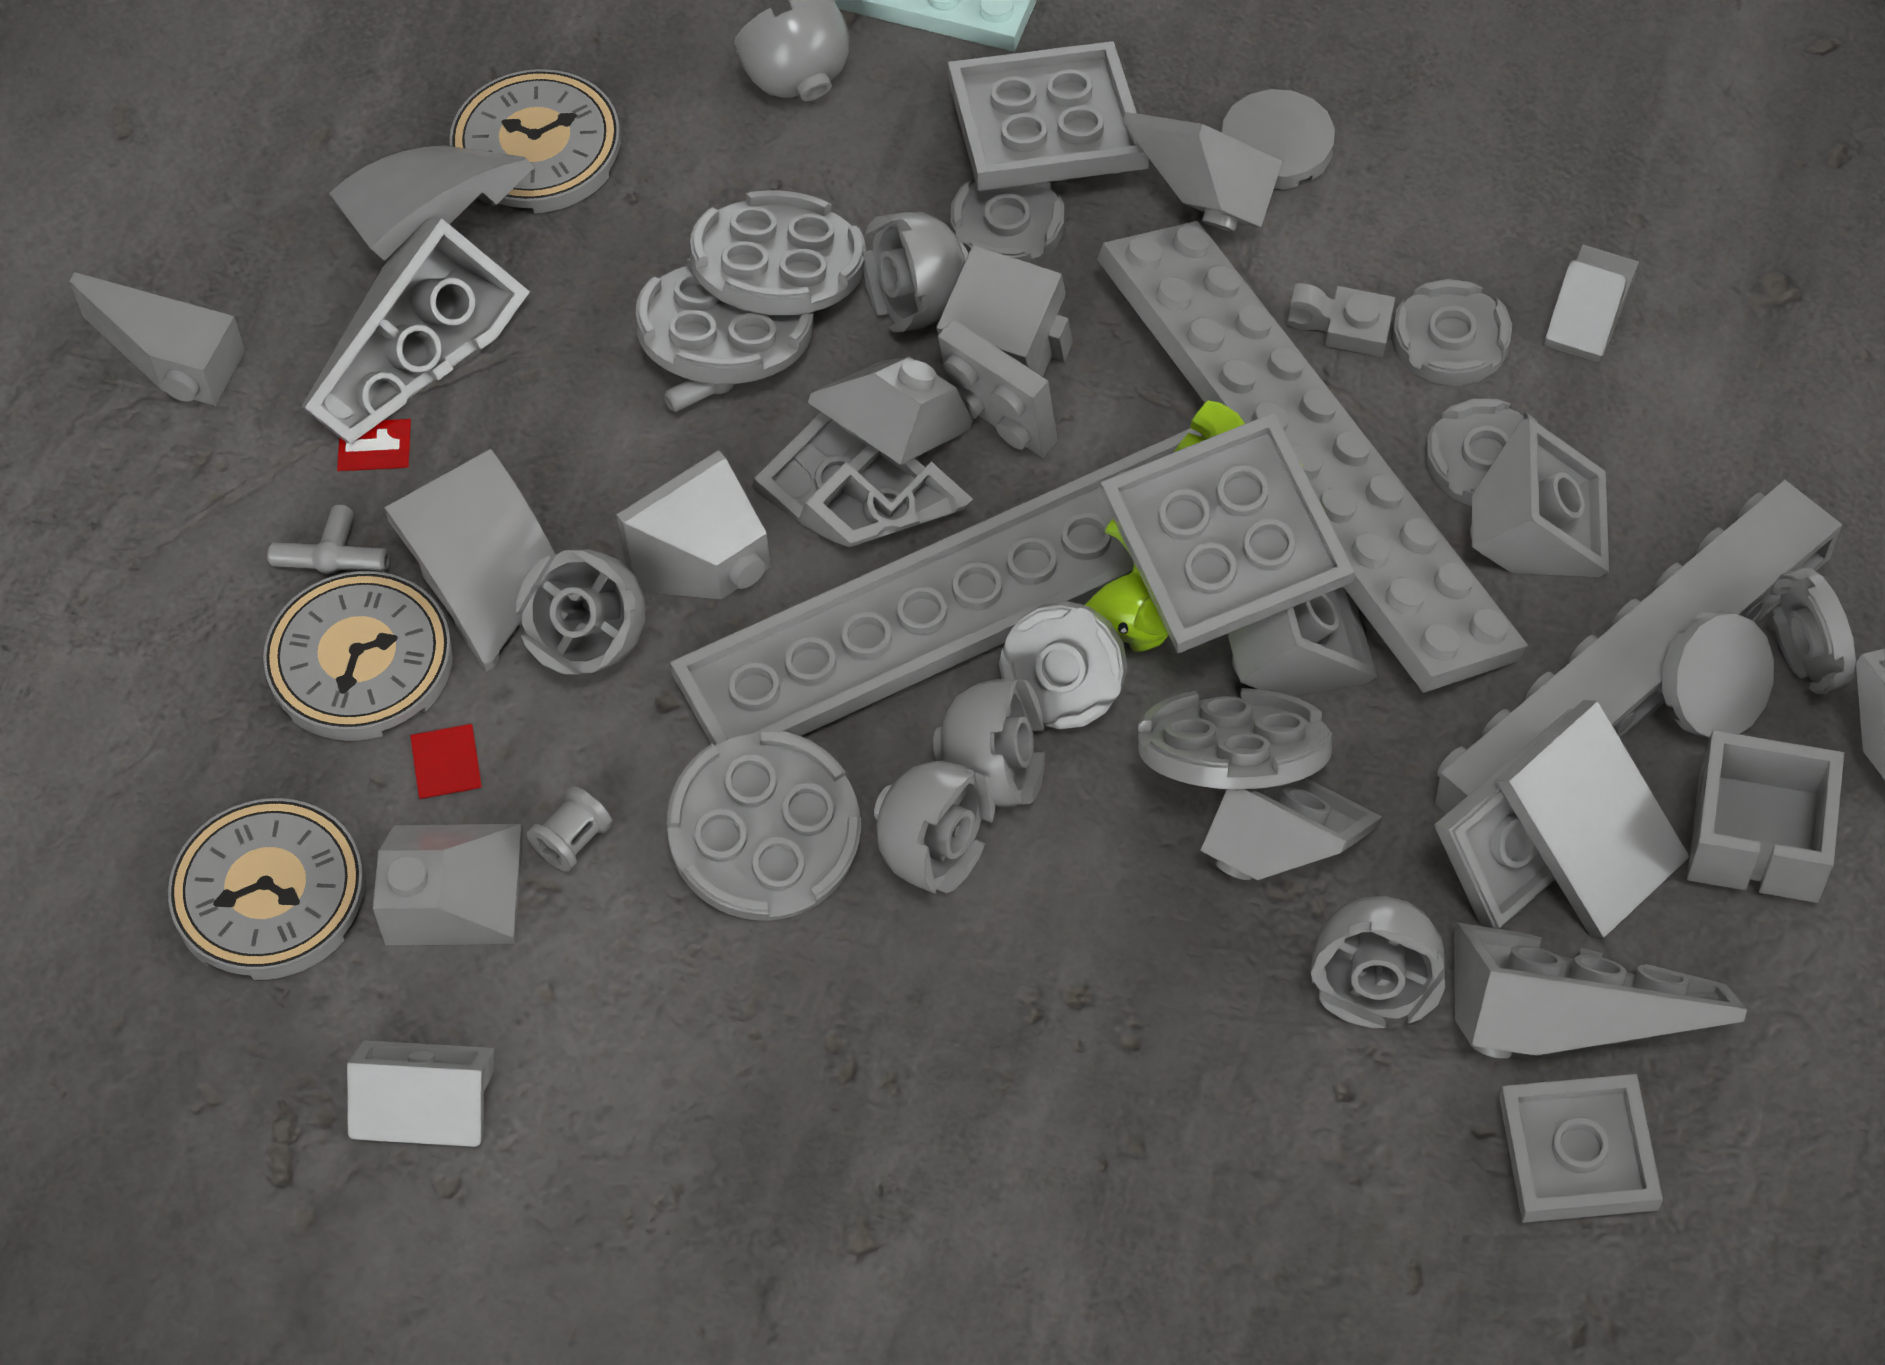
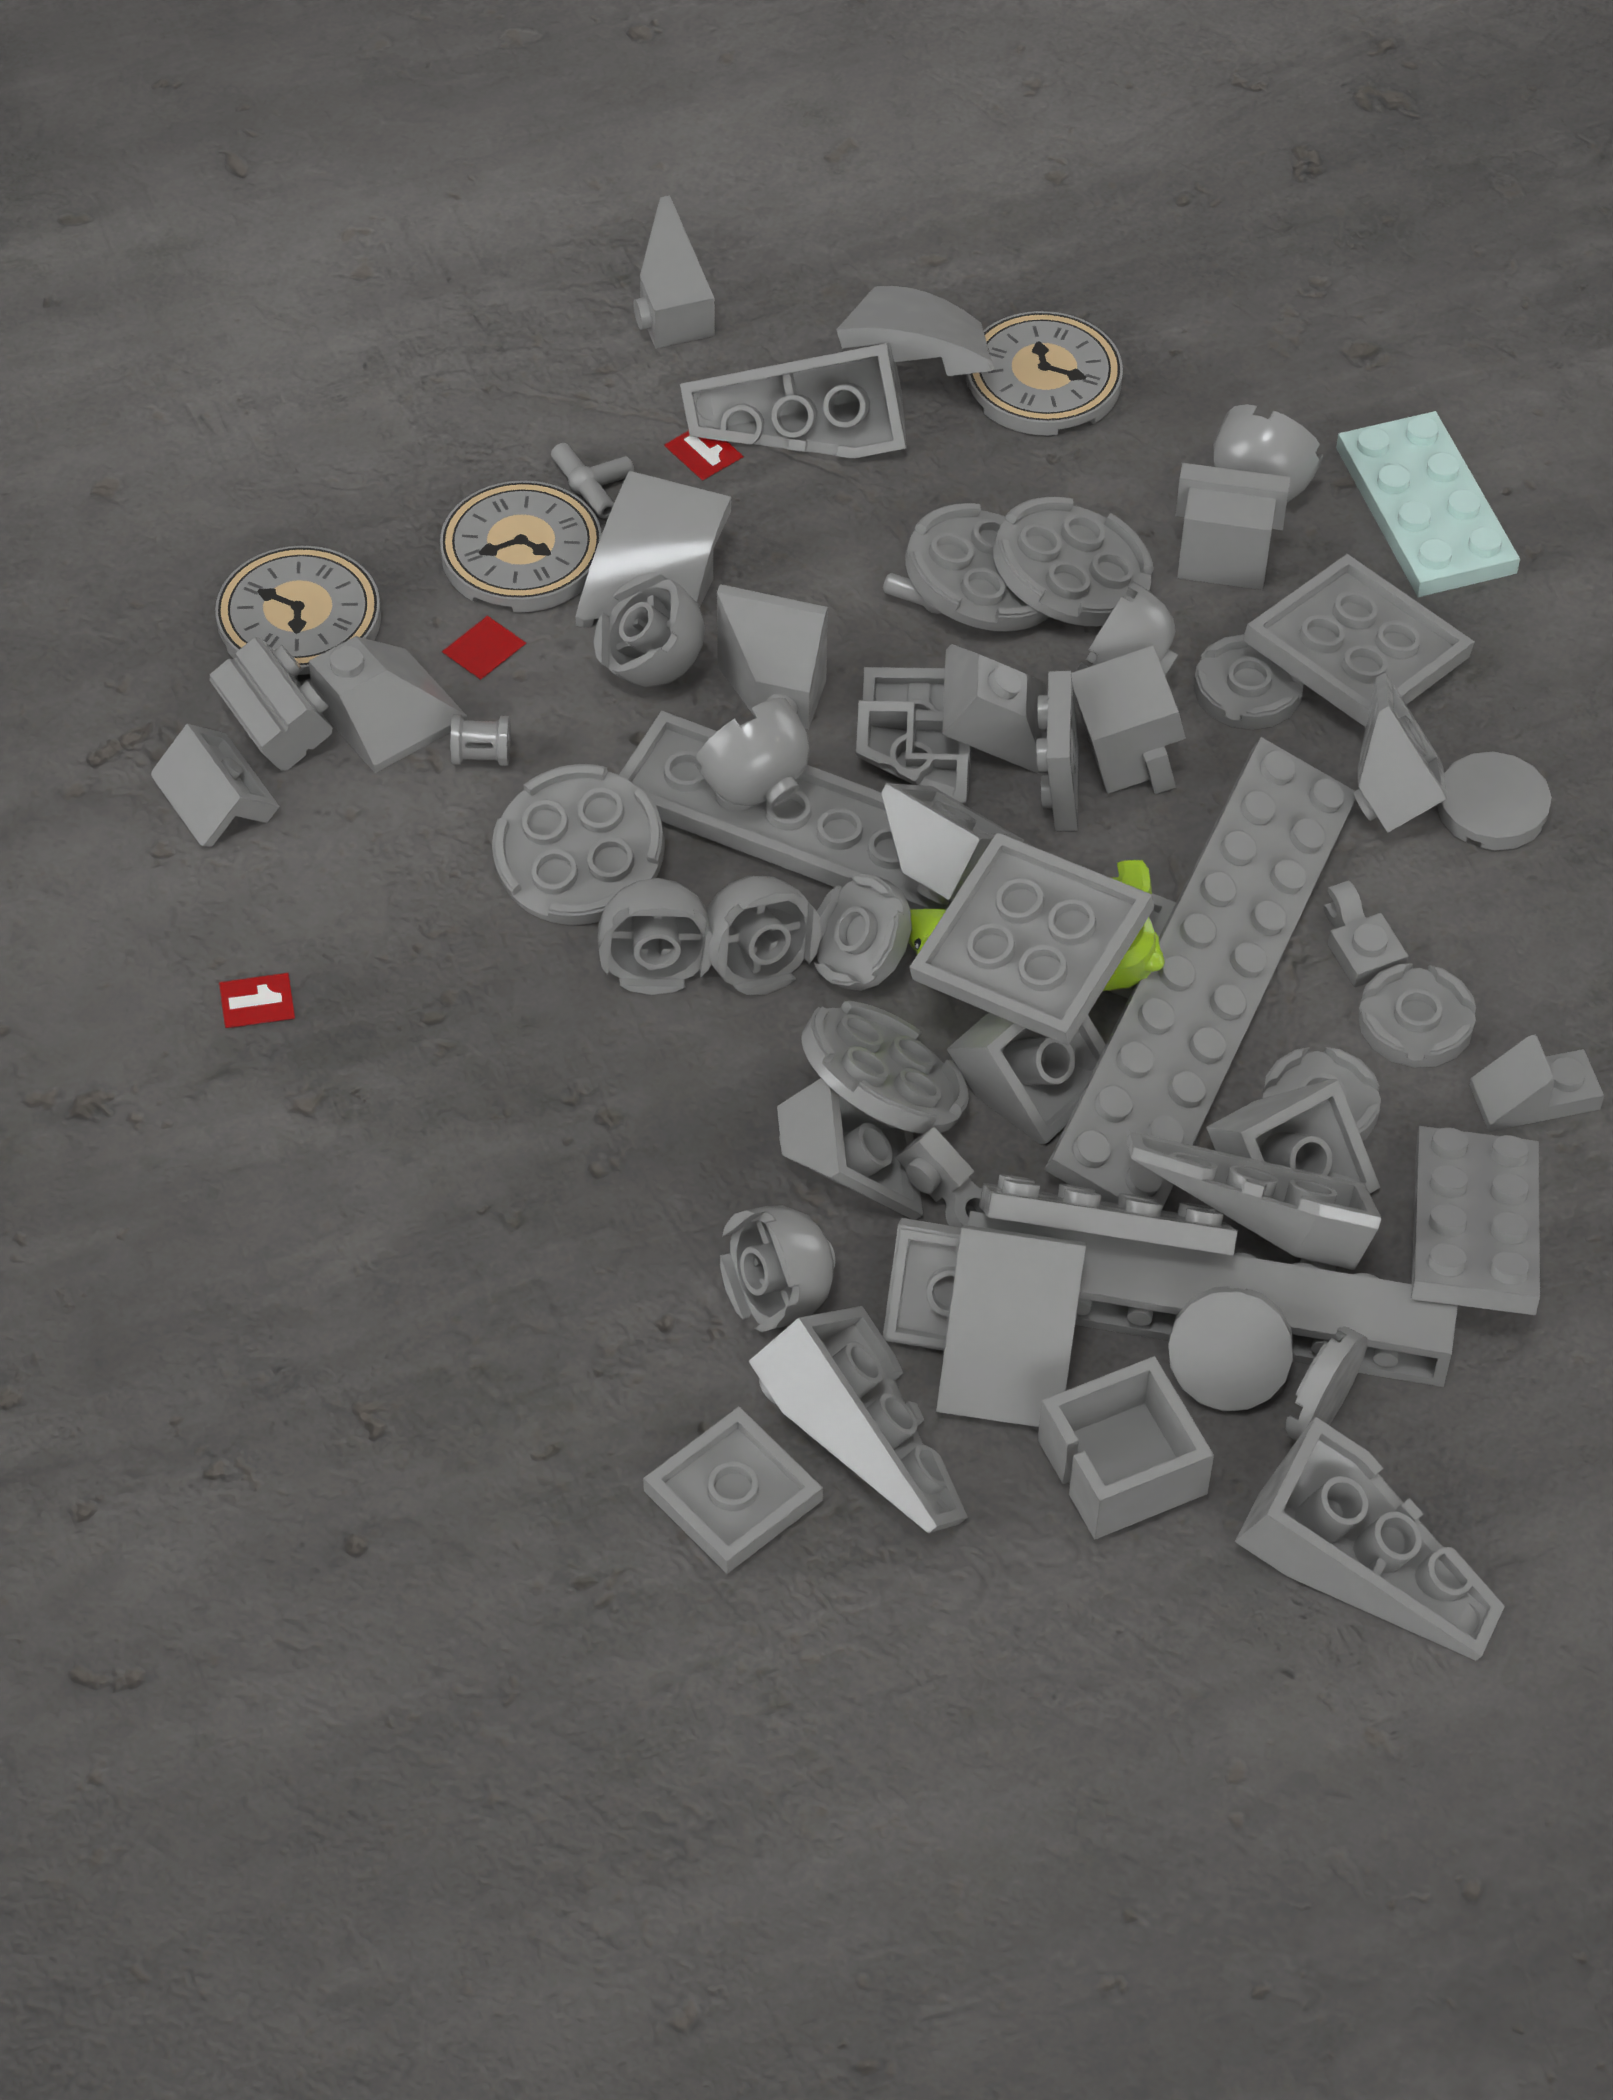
camera: 50 degrees right, 5 degrees down
(376, 974) = (272, 703): none -> light grey brick
(703, 1211) = (256, 1000): none -> red sticker
(821, 614) = (757, 758): none -> light grey cylinder
(849, 118) = (1228, 523): none -> light grey plate
(1035, 532) = (936, 837): none -> light grey slope
(1368, 767) = (942, 1173): none -> light grey plate
(1530, 676) = (1131, 1218): none -> light grey plate
(1616, 536) = (1300, 1211): none -> light grey wedge
(1712, 423) = (1476, 1220): none -> light grey plate

